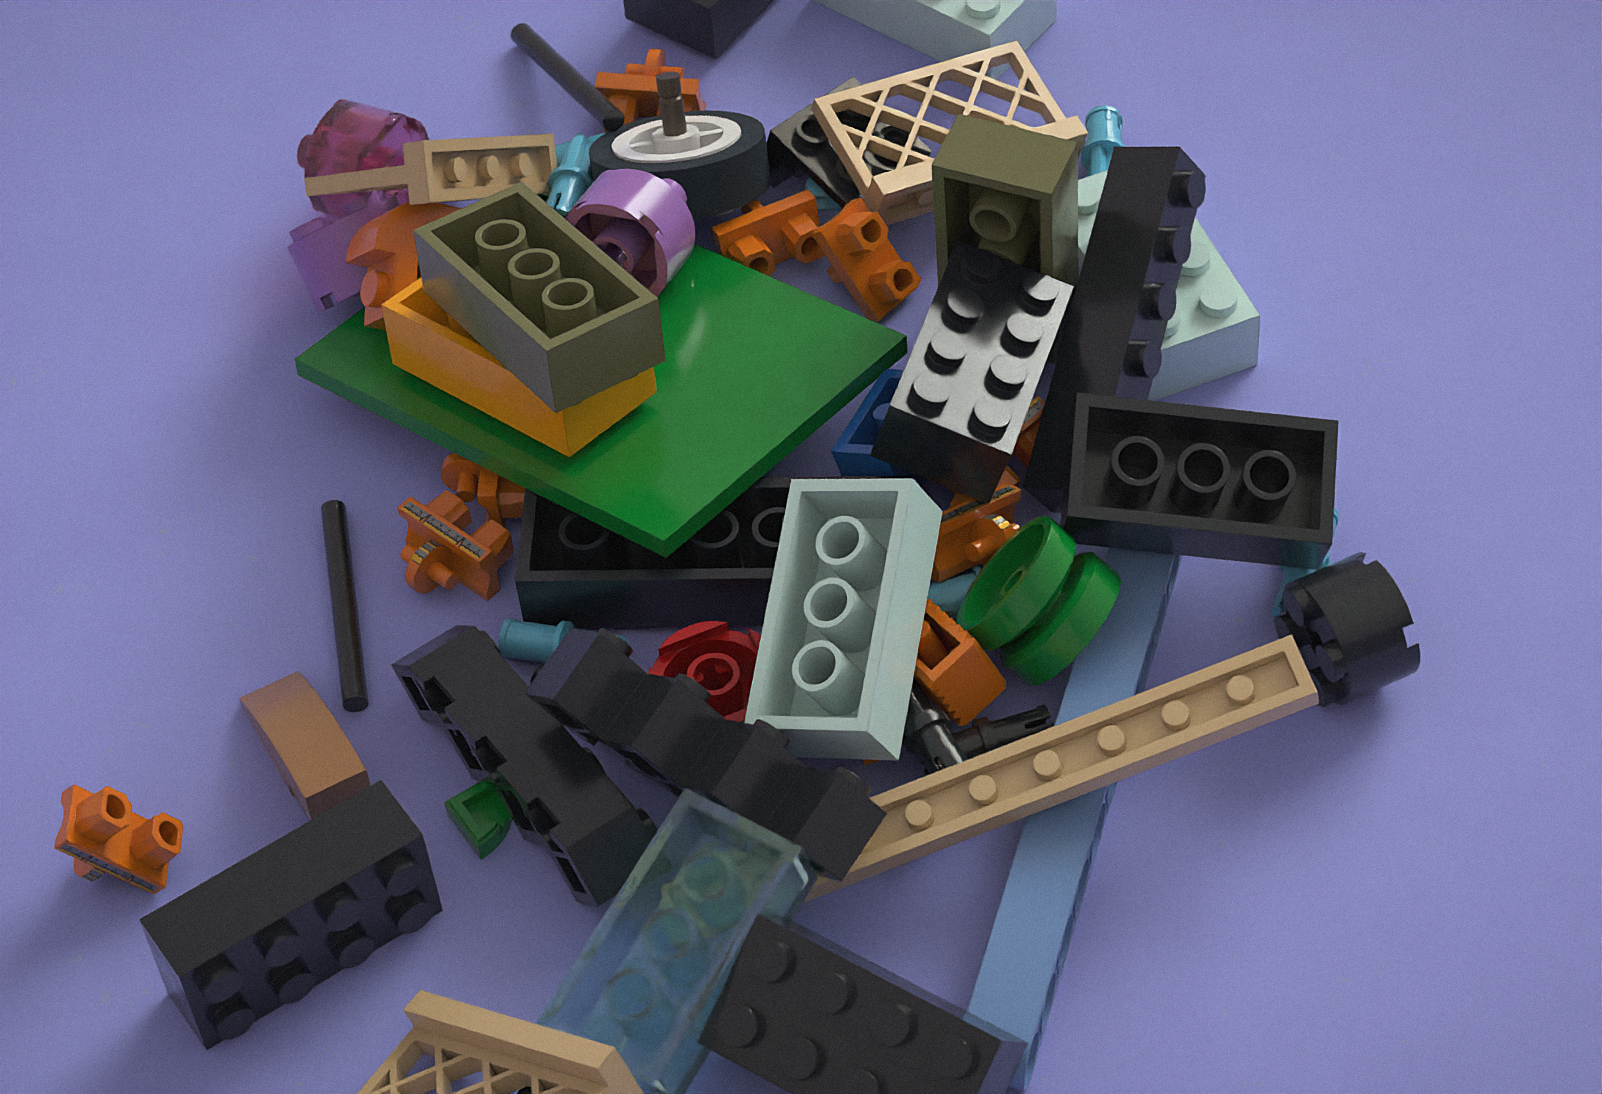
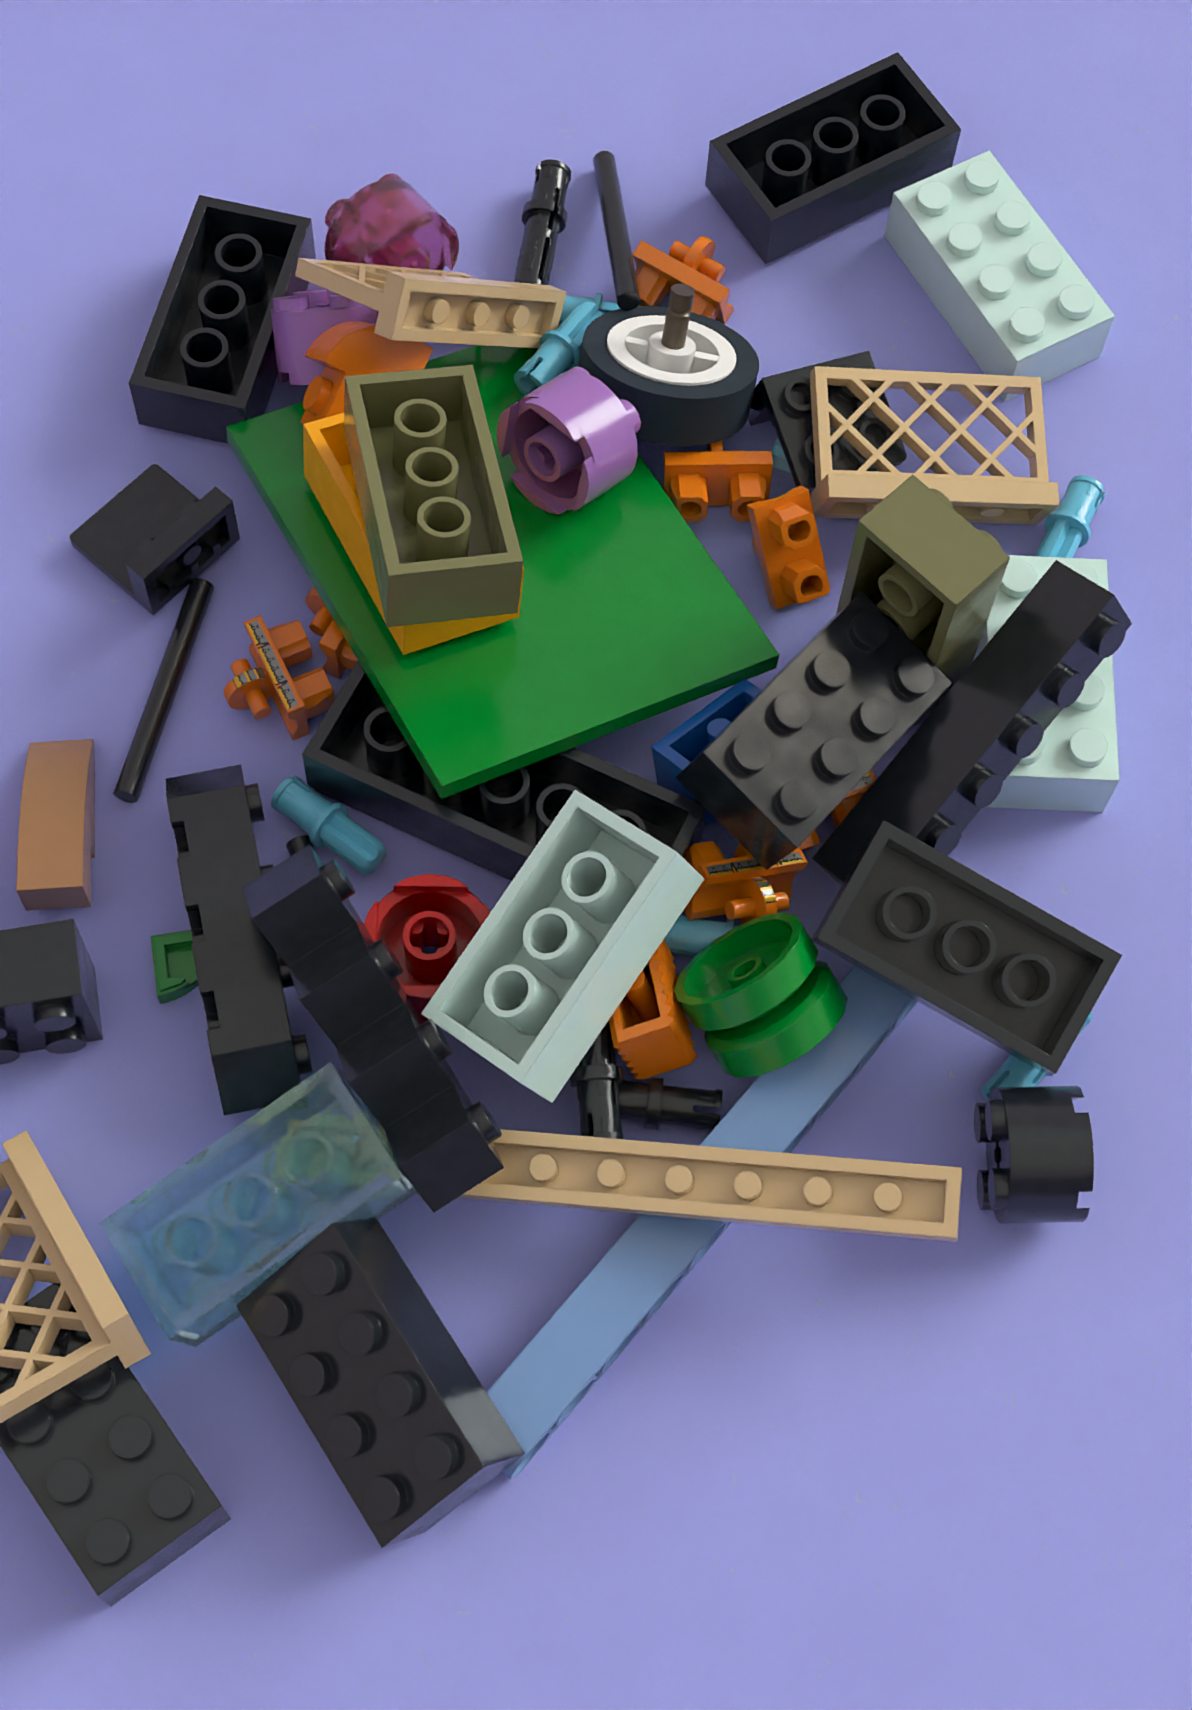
camera: 15 degrees right, 15 degrees up
(239, 283) = (212, 331): none -> black brick
(272, 483) = (157, 536): none -> black bracket
(491, 92) = (543, 221): none -> black pin

